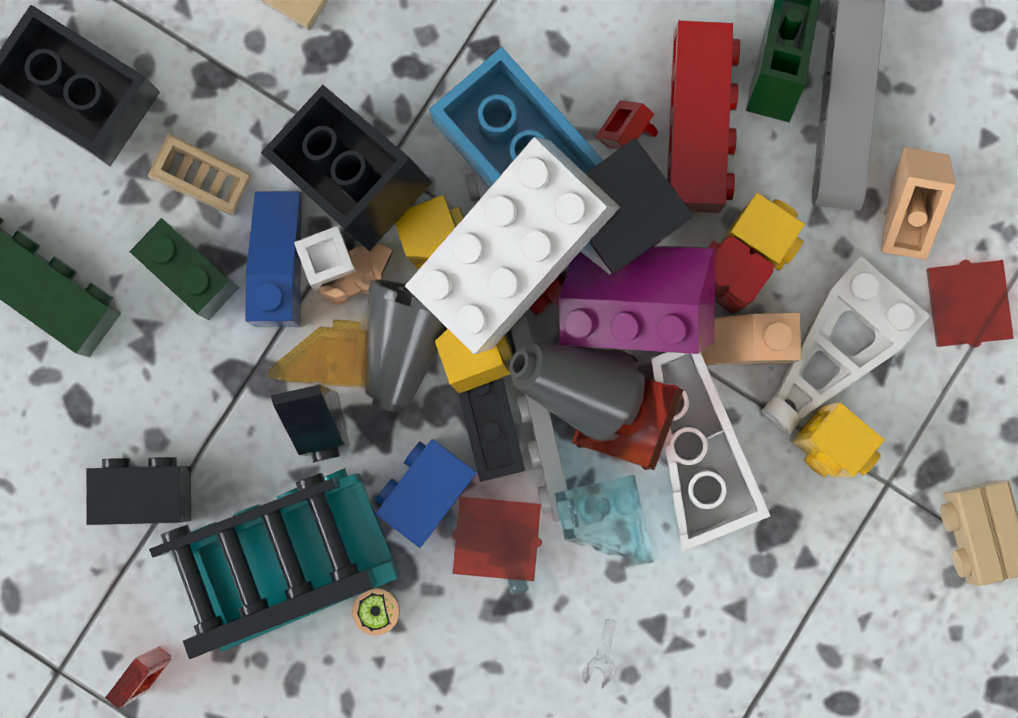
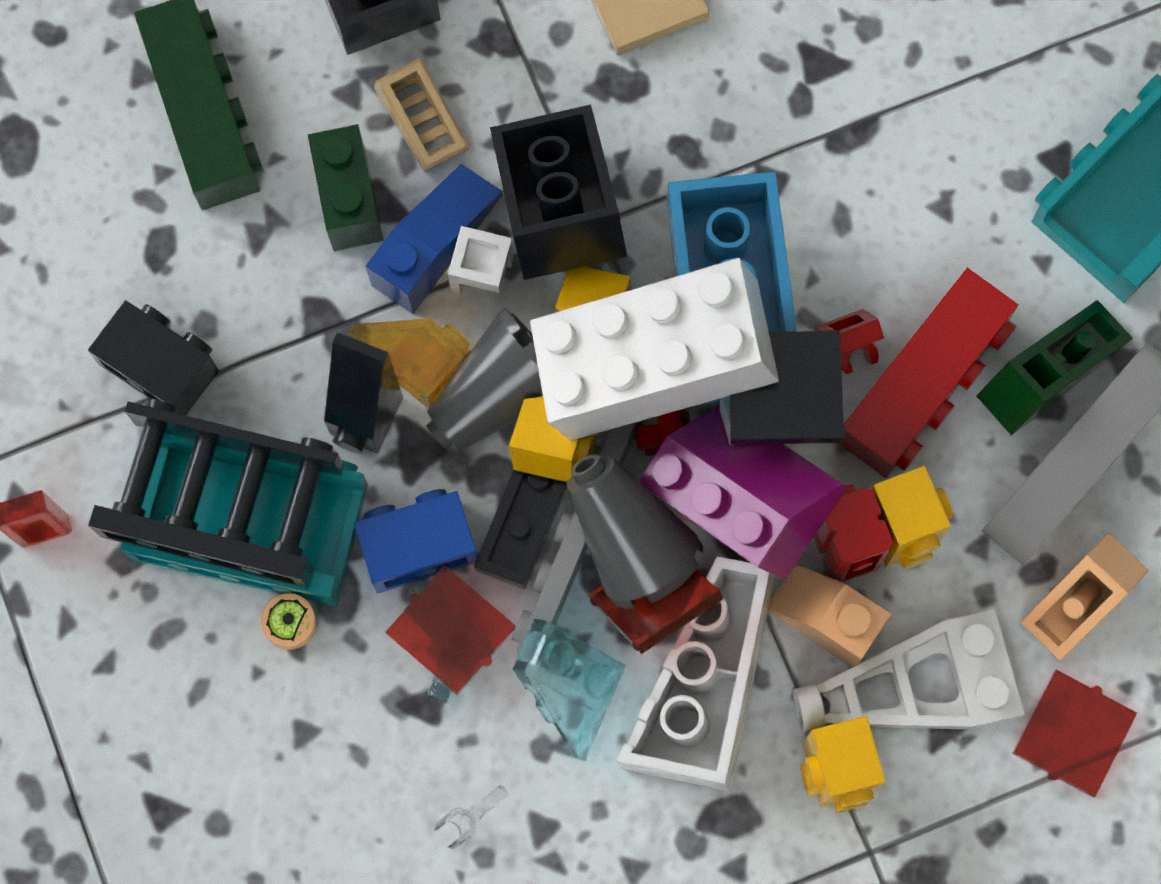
camera: 35 degrees right, 10 degrees down
(368, 267) = (516, 294): light nougat piece -> none

